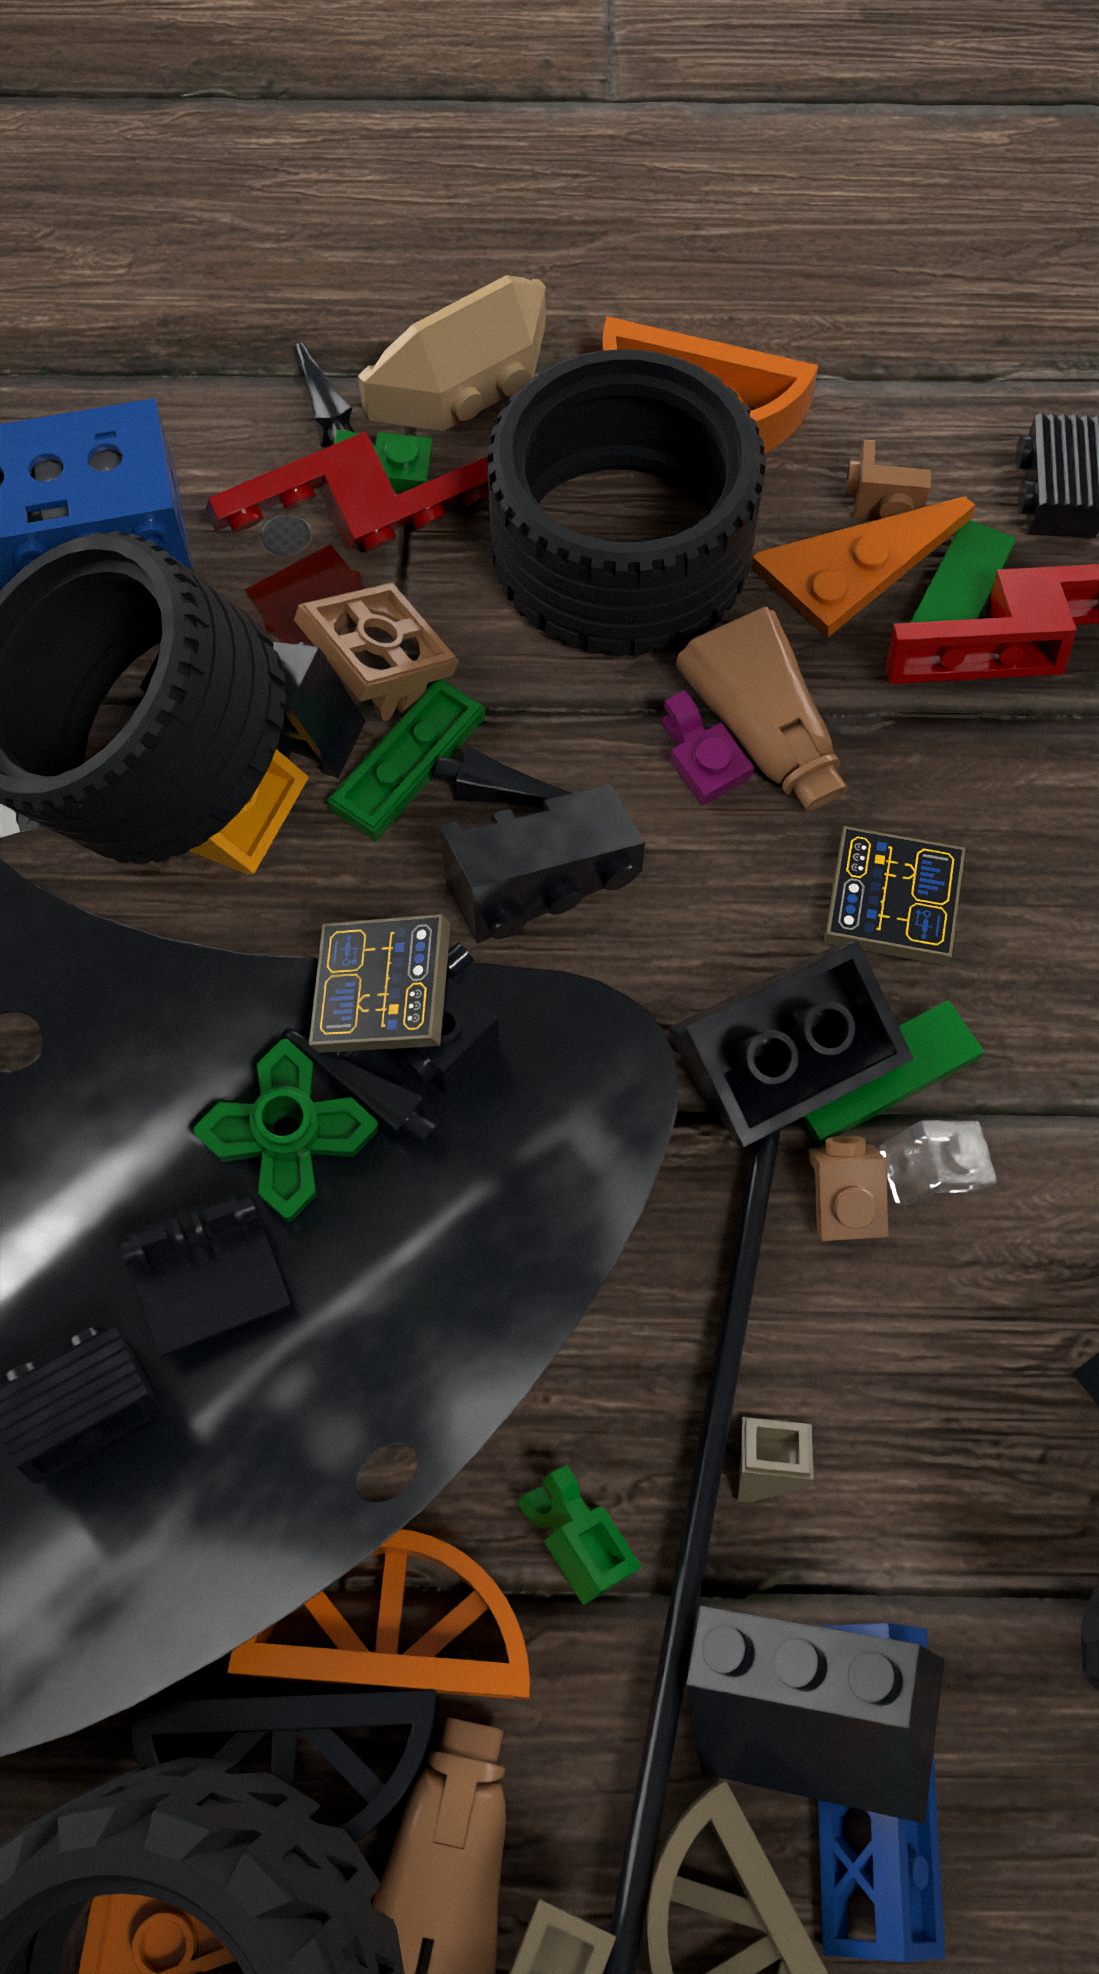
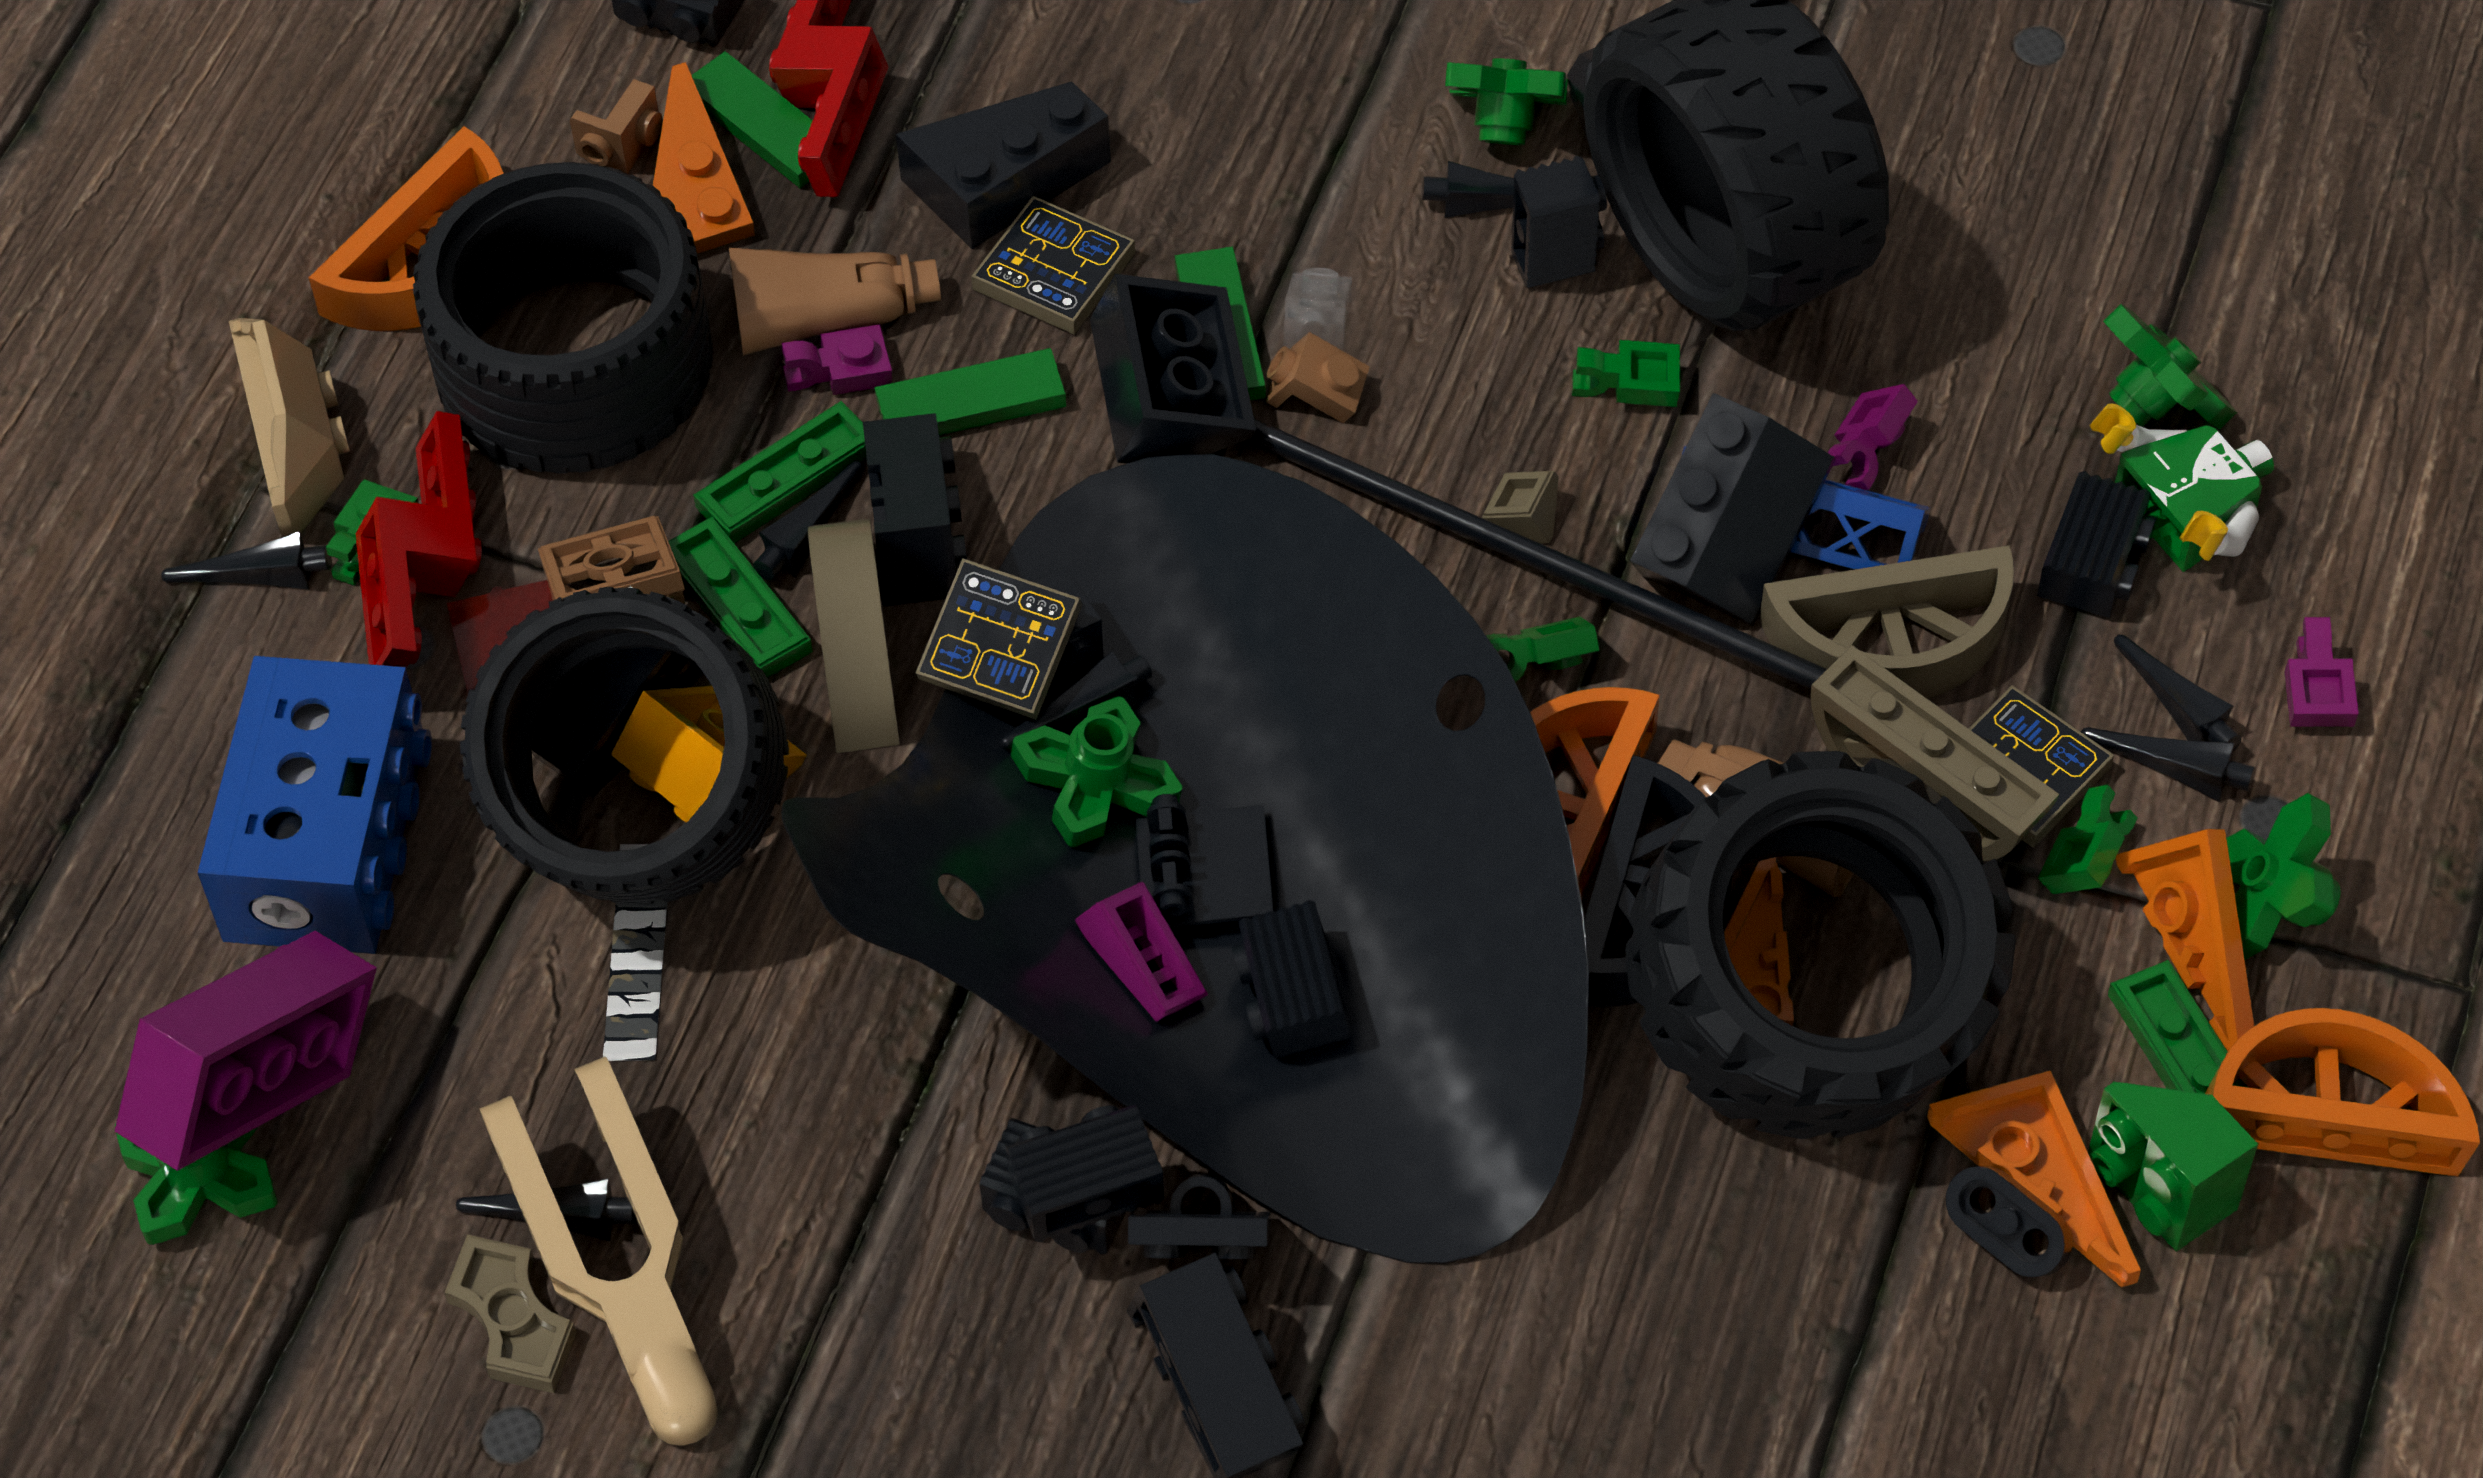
camera: 70 degrees left, 10 degrees down
(108, 1195) = (1131, 916): none -> magenta slope
(372, 852) = (853, 635): none -> dark tan window
(559, 747) = (784, 473): none -> green tile
(707, 876) = (978, 392): none -> green tile
(994, 1537) = (1639, 371): none -> green plate
(996, 803) = (994, 159): none -> black wedge
(1032, 1844) = (1871, 424): none -> magenta plate

